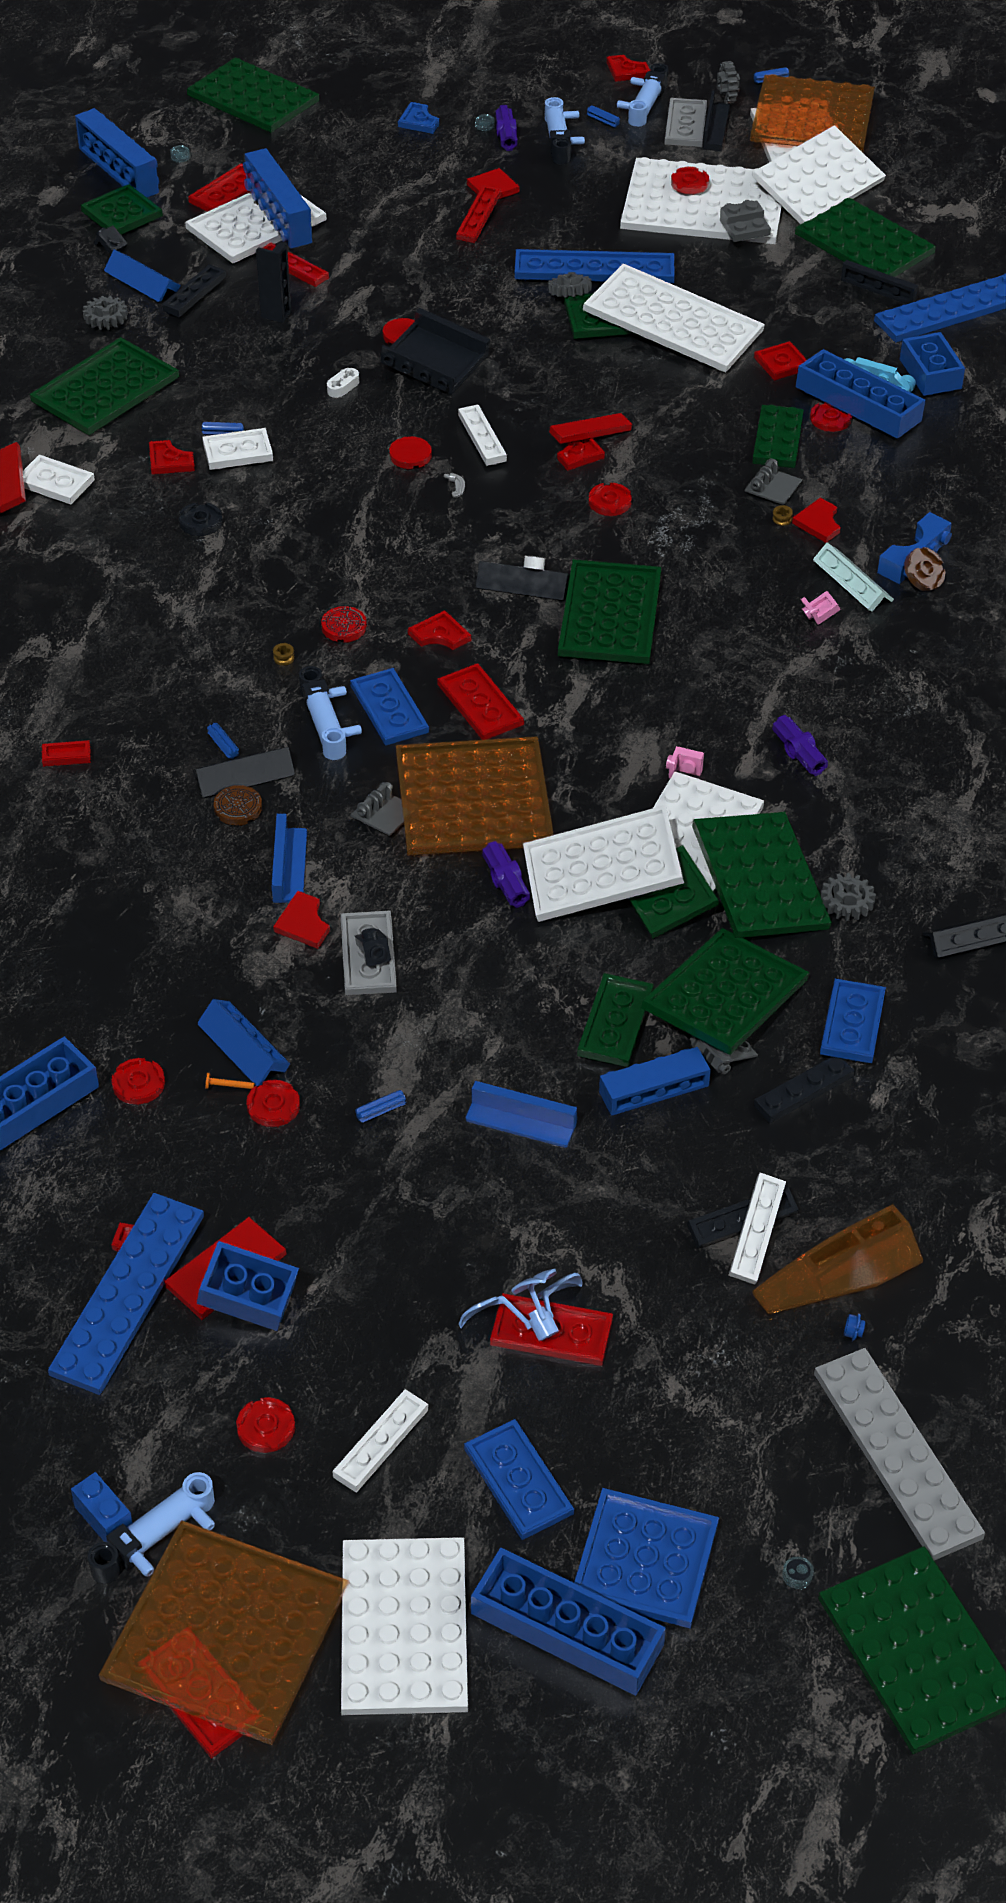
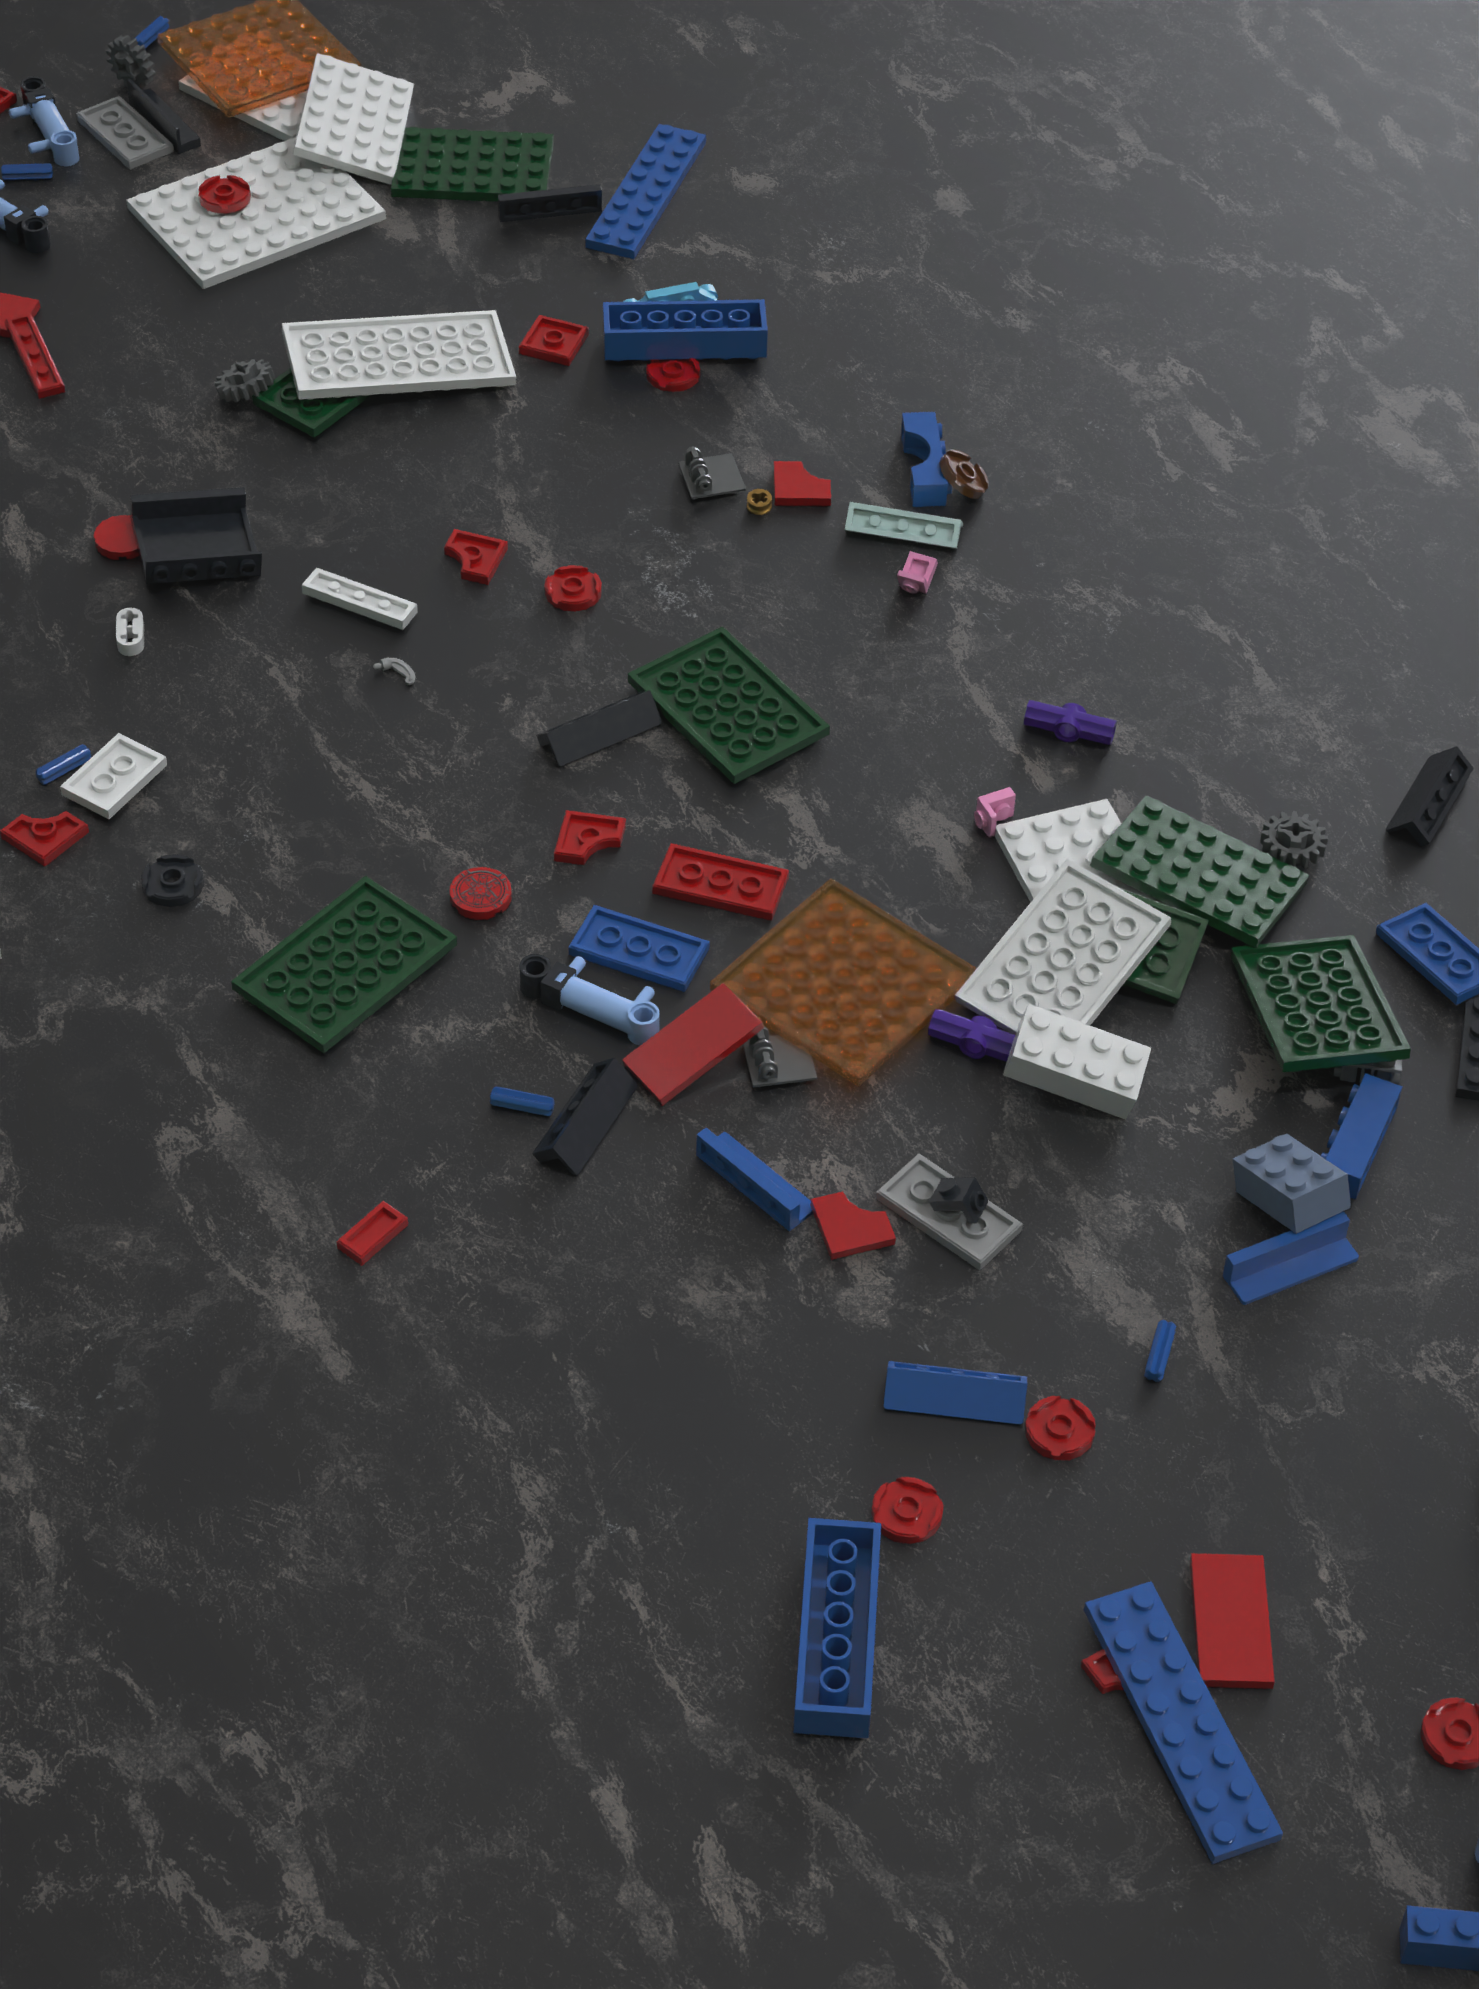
camera: 45 degrees left, 0 degrees up
(226, 613) = (344, 964): none -> dark green plate
(230, 1083) = (976, 1454): orange pin -> none
(237, 805) = (627, 1157): reddish brown tile -> none
(247, 1286) = (1295, 1614): blue brick -> none
(283, 648) = (461, 973): pearl gold bush -> none
(342, 769) = (693, 1044): none -> red tile
(410, 452) = (305, 664): red tile -> none
(533, 920) = (1077, 1061): none -> white brick
(534, 562) = (599, 700): white beam -> none
(565, 1070) = (1291, 1183): none -> sand blue brick
(590, 428) = (465, 523): red tile -> none
(596, 264) = (241, 340): blue plate -> none
(614, 1020) = (1250, 1099): dark green plate -> none
(744, 220) = (341, 208): dark grey plate -> none
(778, 435) = (650, 422): dark green plate -> none
(932, 363) = (711, 258): blue brick -> none

